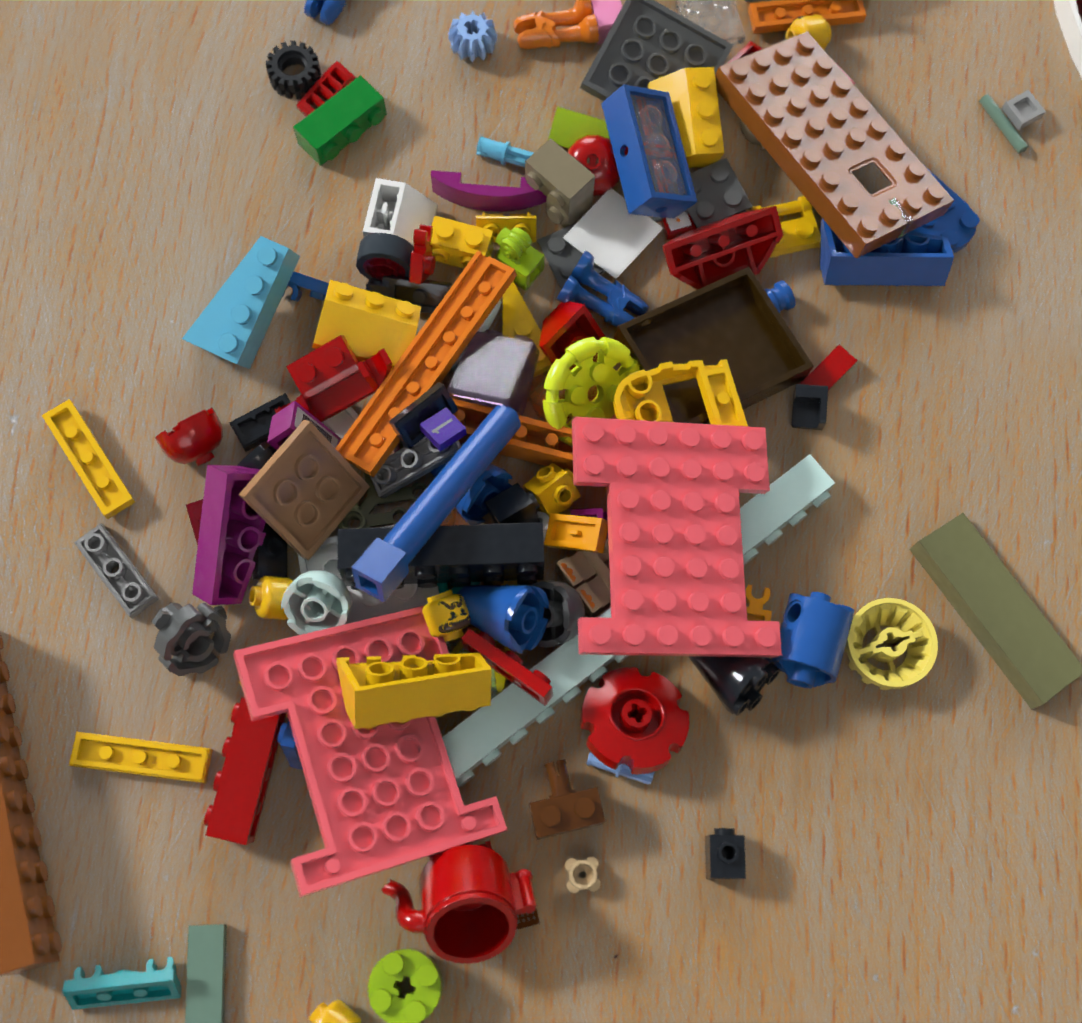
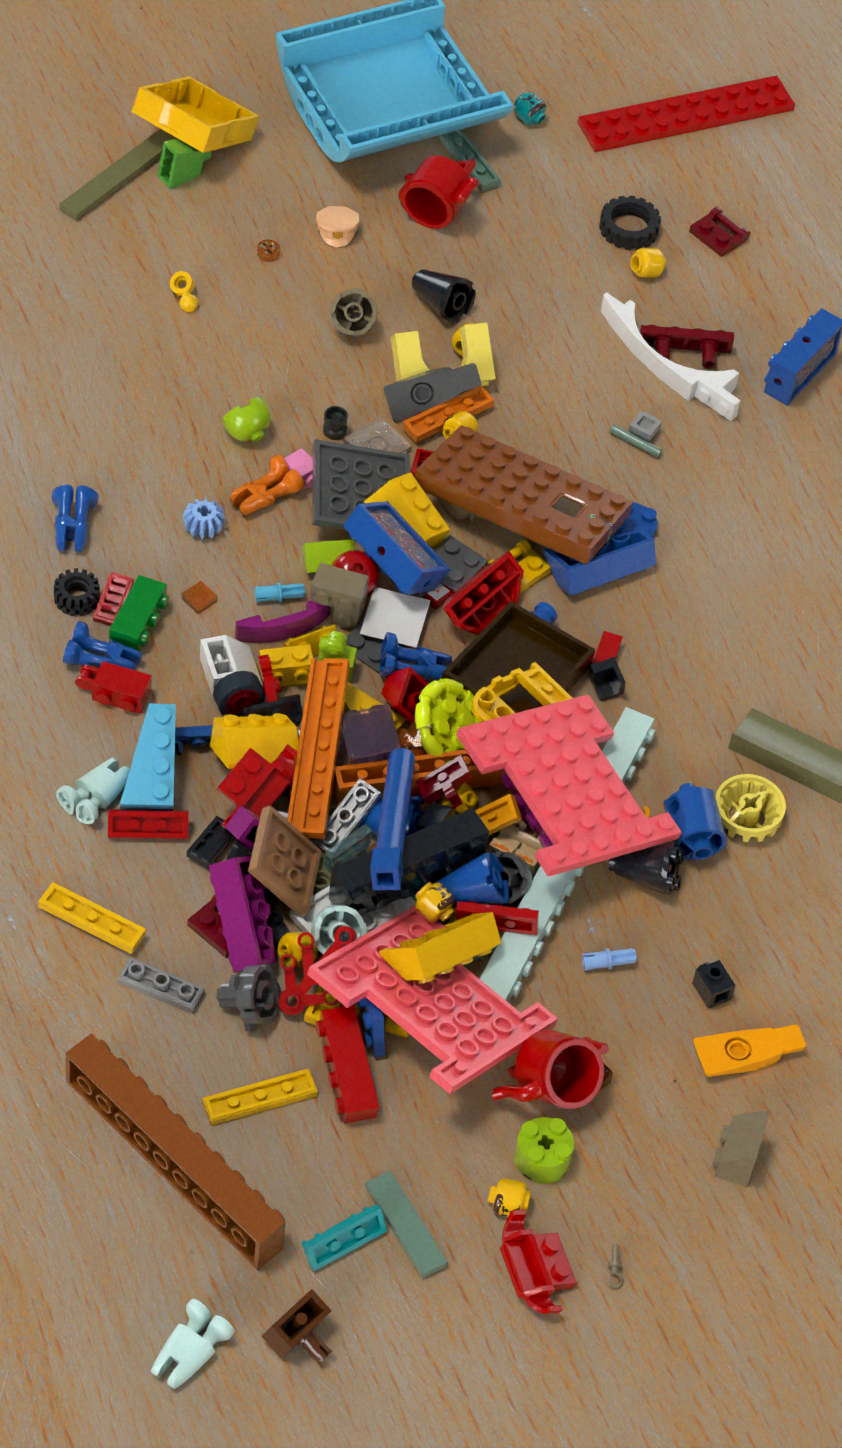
camera: 30 degrees left, 20 degrees down
(181, 301) = (100, 785): none -> light aqua piece
(193, 438) = (168, 871): red cylinder -> none
(209, 371) = (147, 823): none -> red plate
(263, 633) = (308, 959): none -> red plant
(271, 196) = (116, 686): none -> red brick
(291, 153) = (115, 652): none -> blue piece
(394, 497) = (348, 847): none -> clear light blue tile
(408, 421) = (341, 779): black plate -> none
(419, 125) = (199, 597): none -> clear orange tile
(443, 429) = (363, 780): dark purple tile -> none
(539, 466) = (444, 781): none -> dark red plate
(565, 808) = (587, 998): reddish brown brick -> none
(589, 867) = (625, 1031): tan plate -> none
(624, 740) = (602, 924): red piece -> none
(718, 962) = (746, 1049): none -> light orange piece

